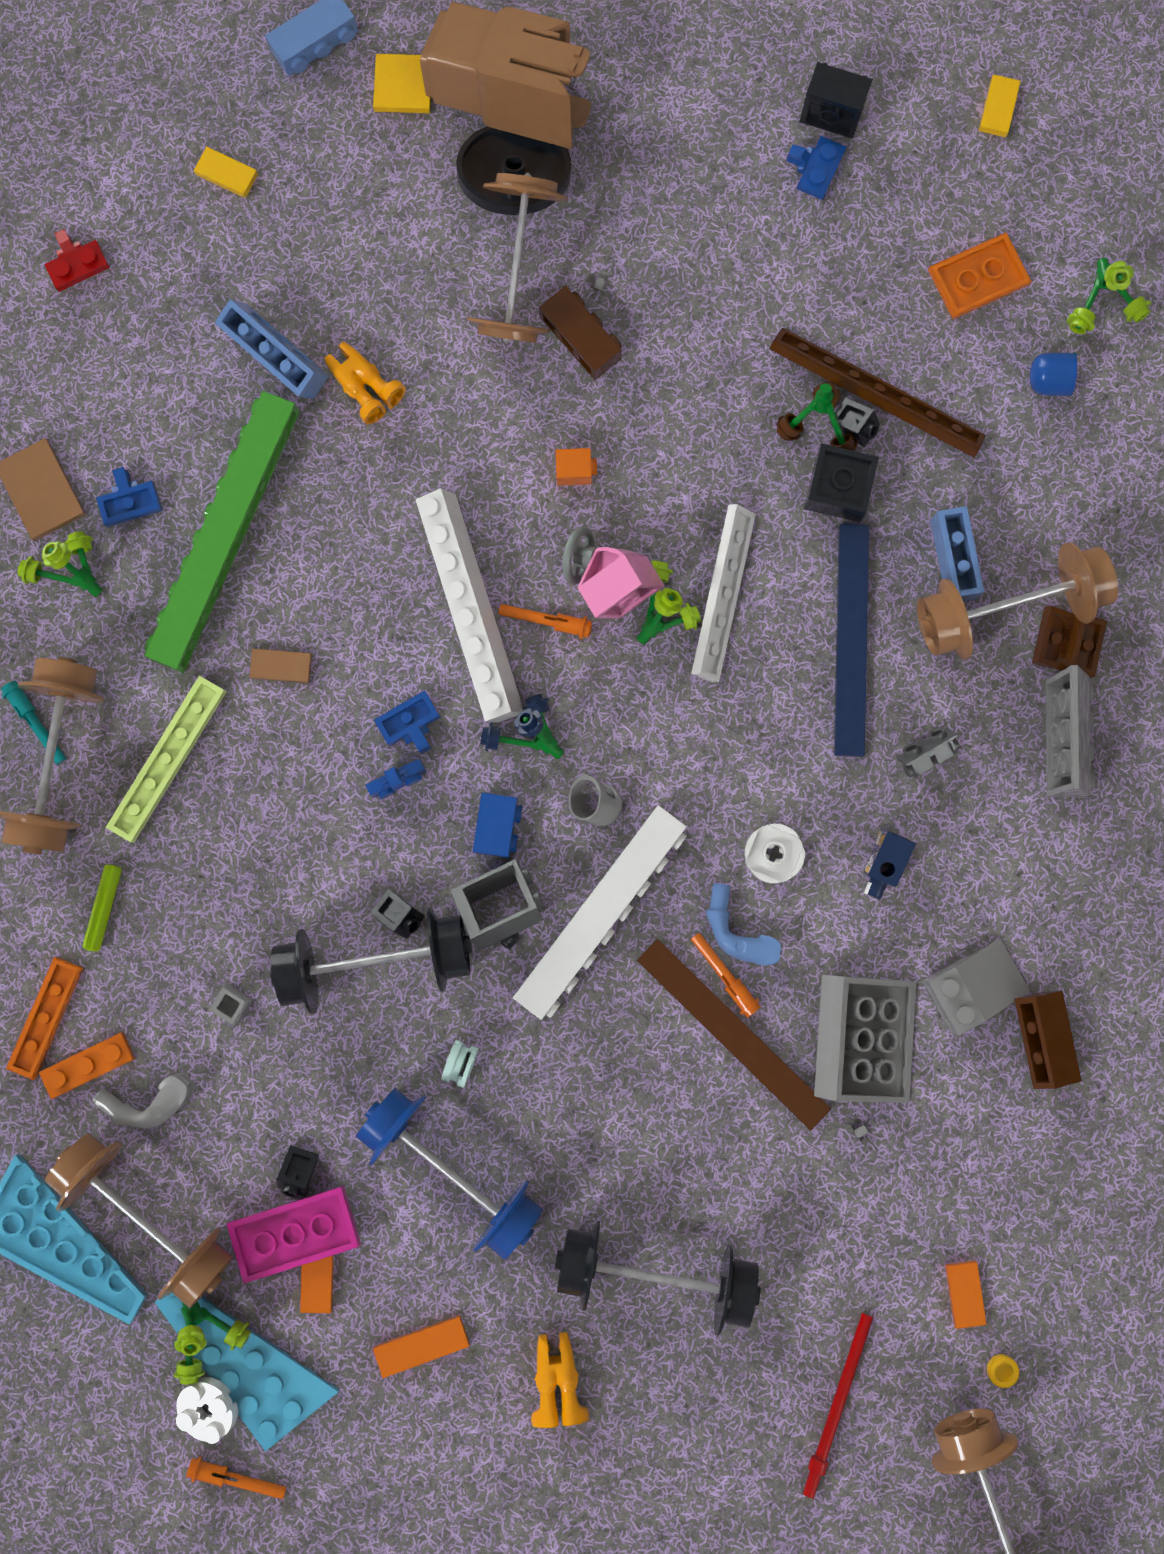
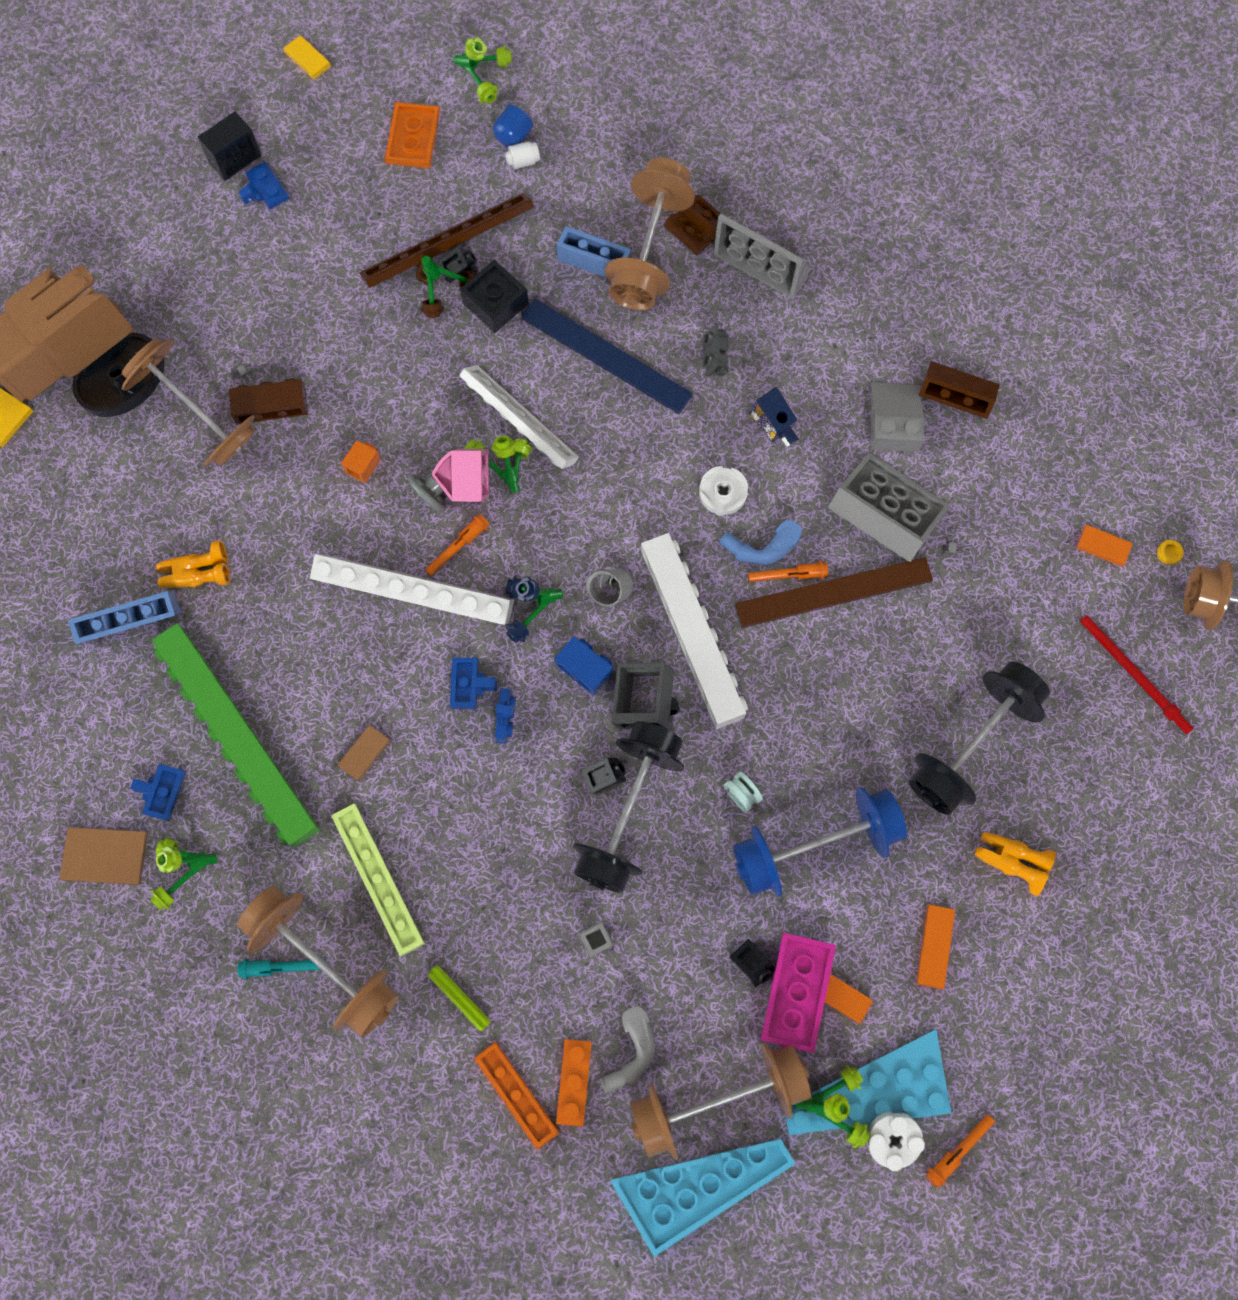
camera: 65 degrees left, 10 degrees down
(1029, 406) = (522, 155): none -> white brick

